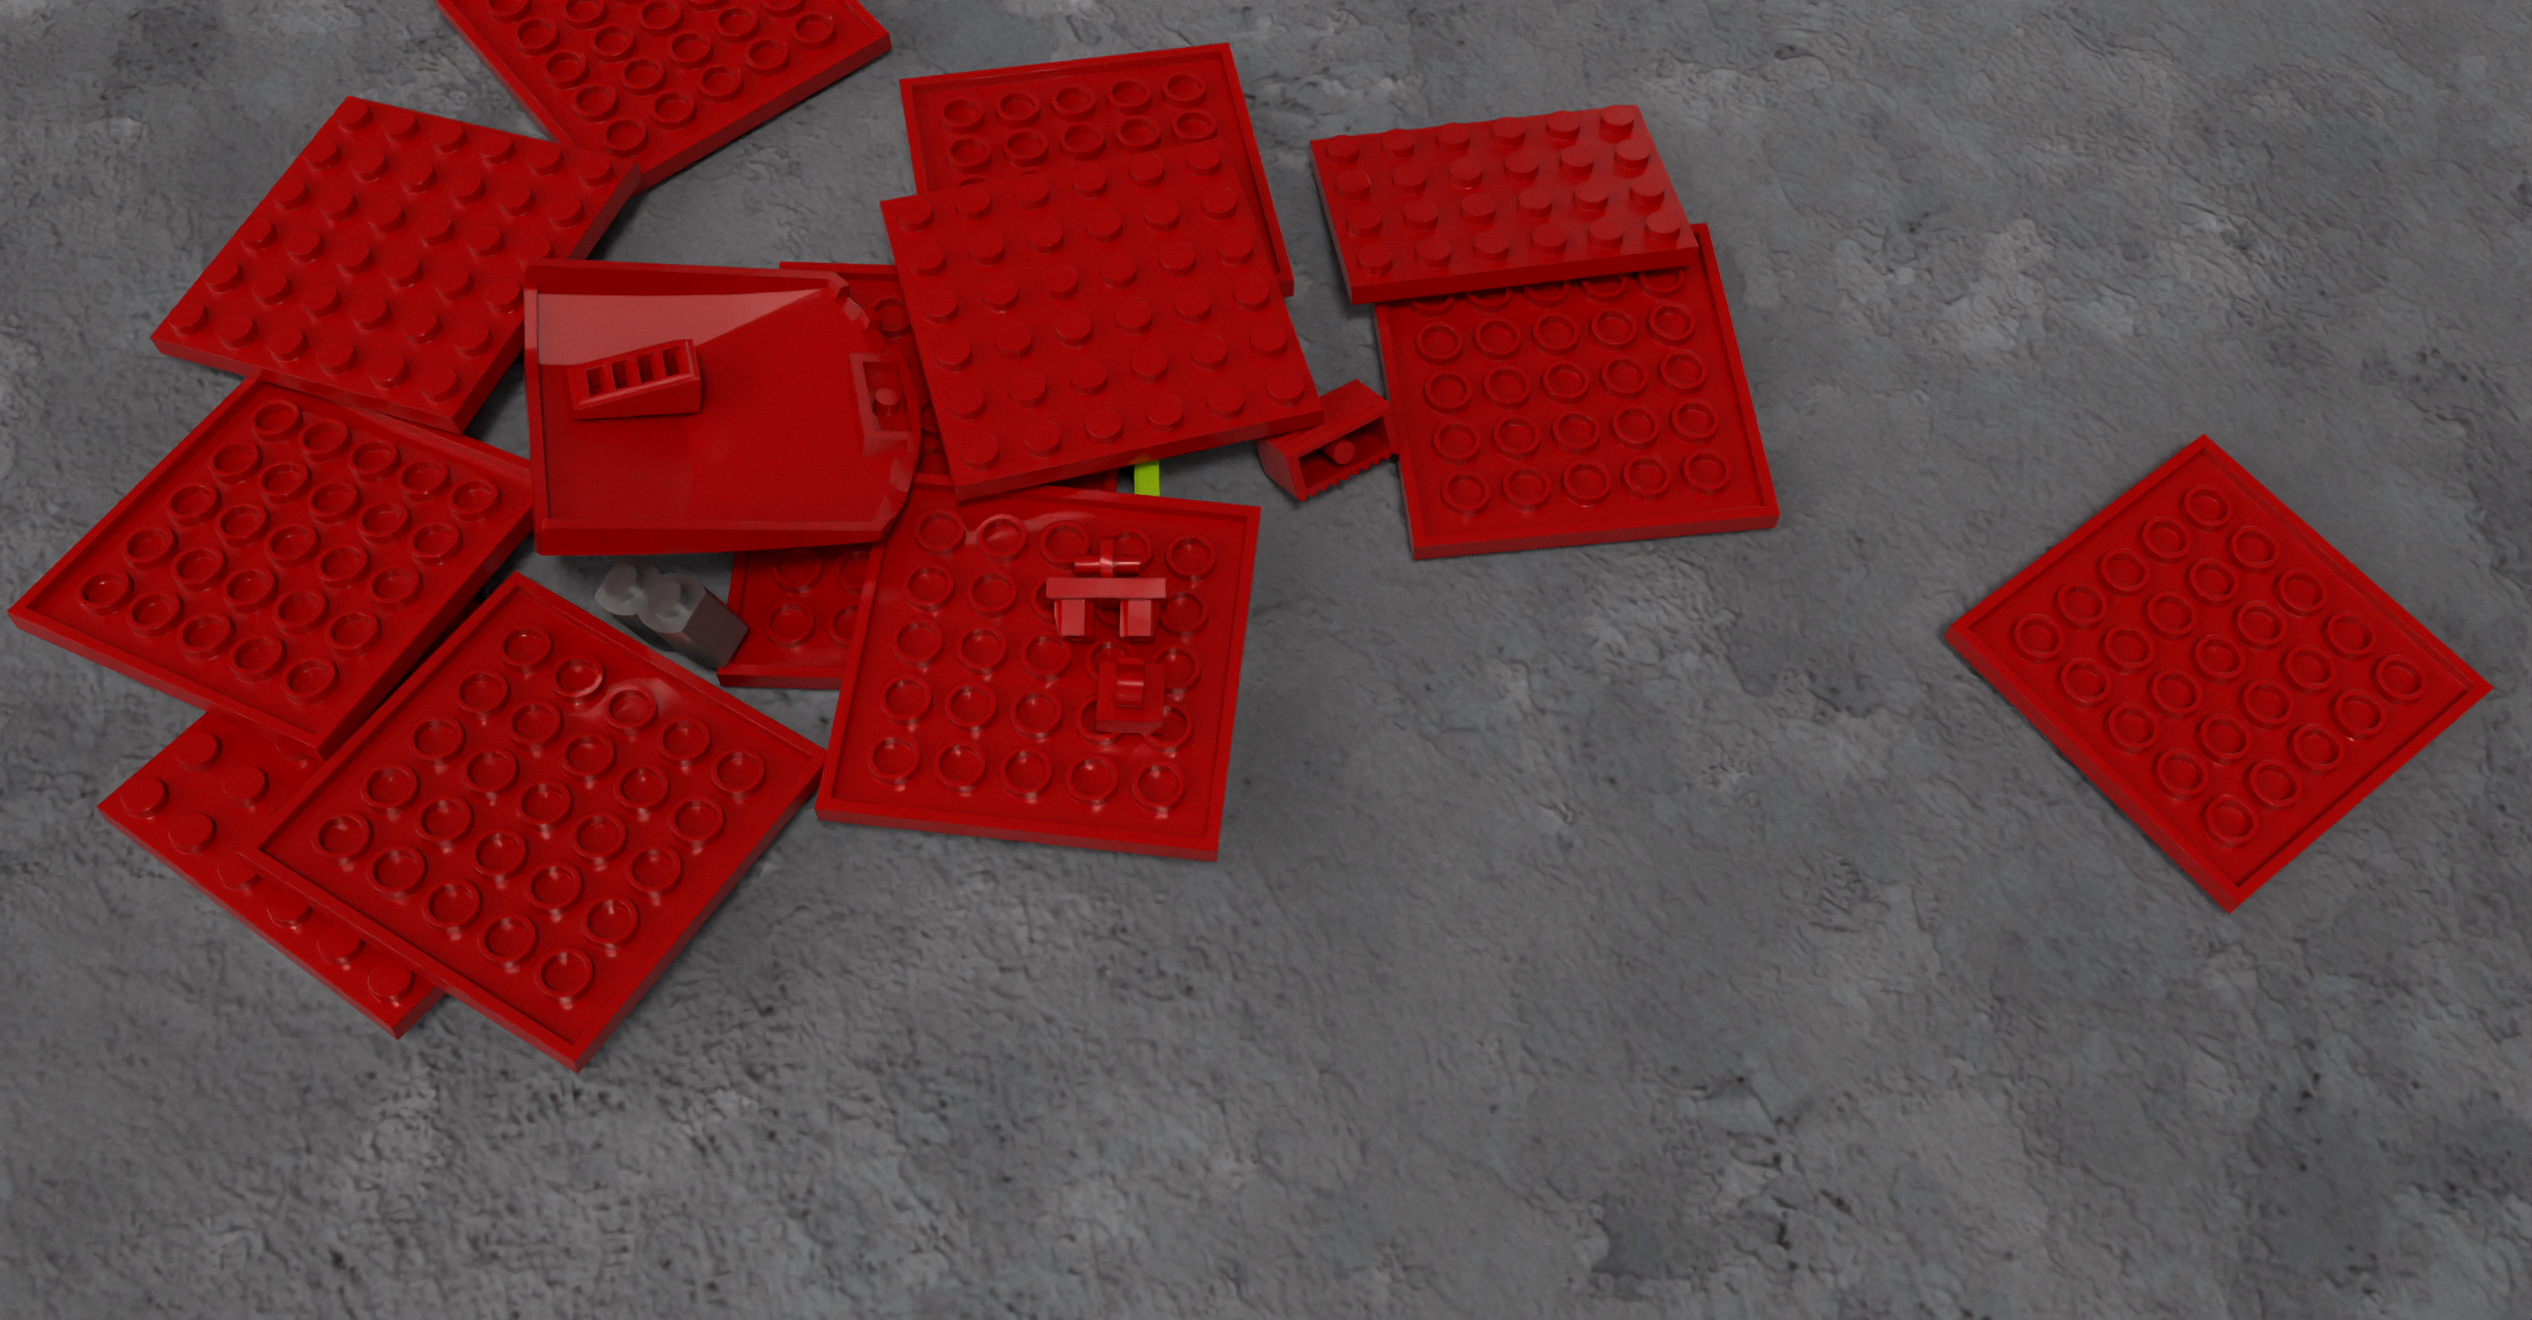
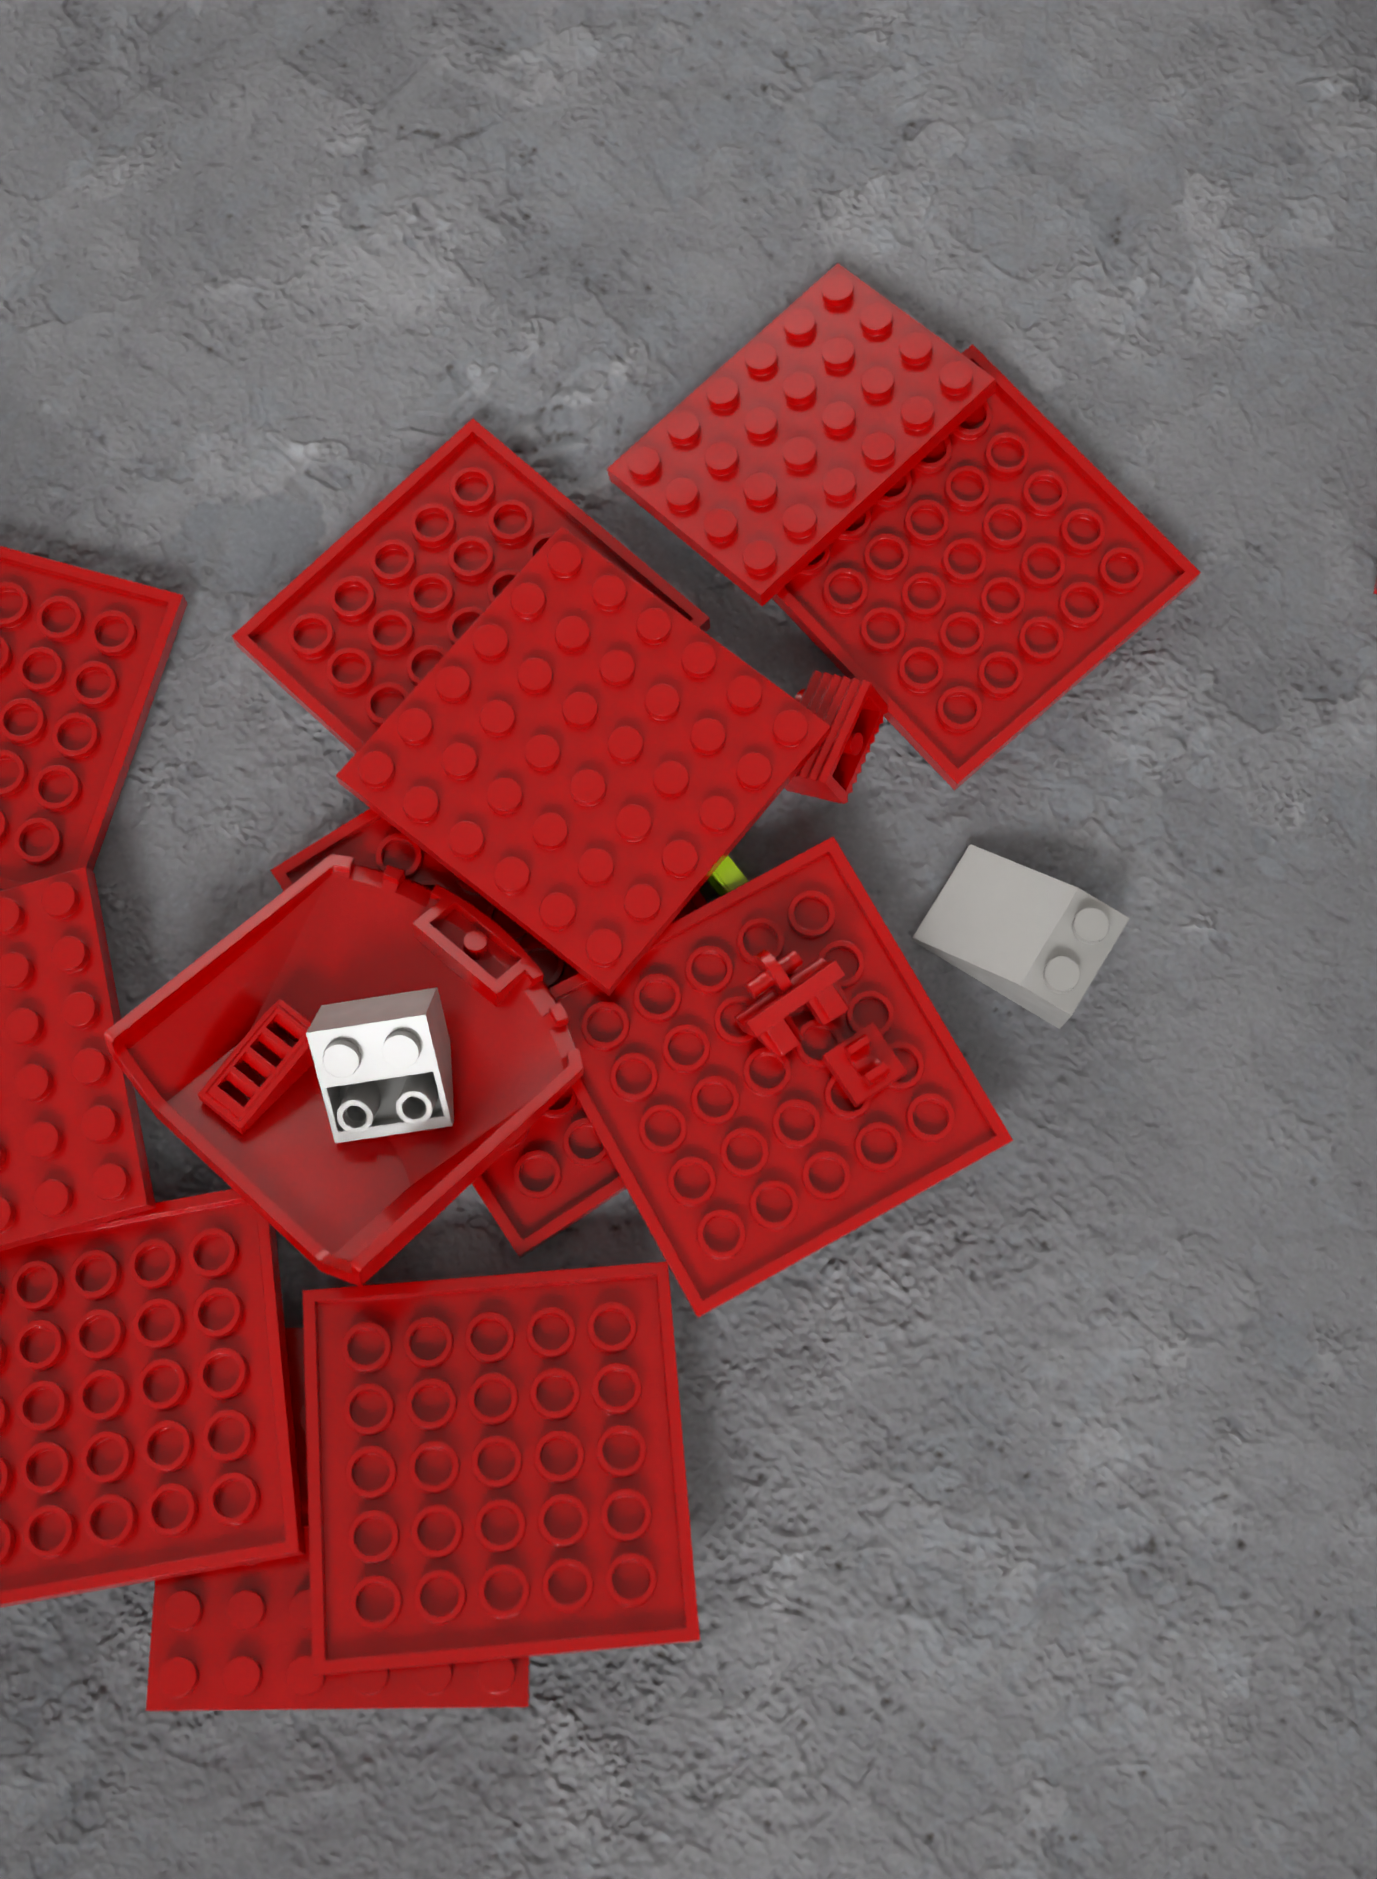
camera: 35 degrees left, 15 degrees up
(671, 611) = (463, 1237): flat silver brick -> none
(726, 434) = (384, 1065): none -> light grey slope
(1379, 712) = (1021, 933): none -> light grey slope

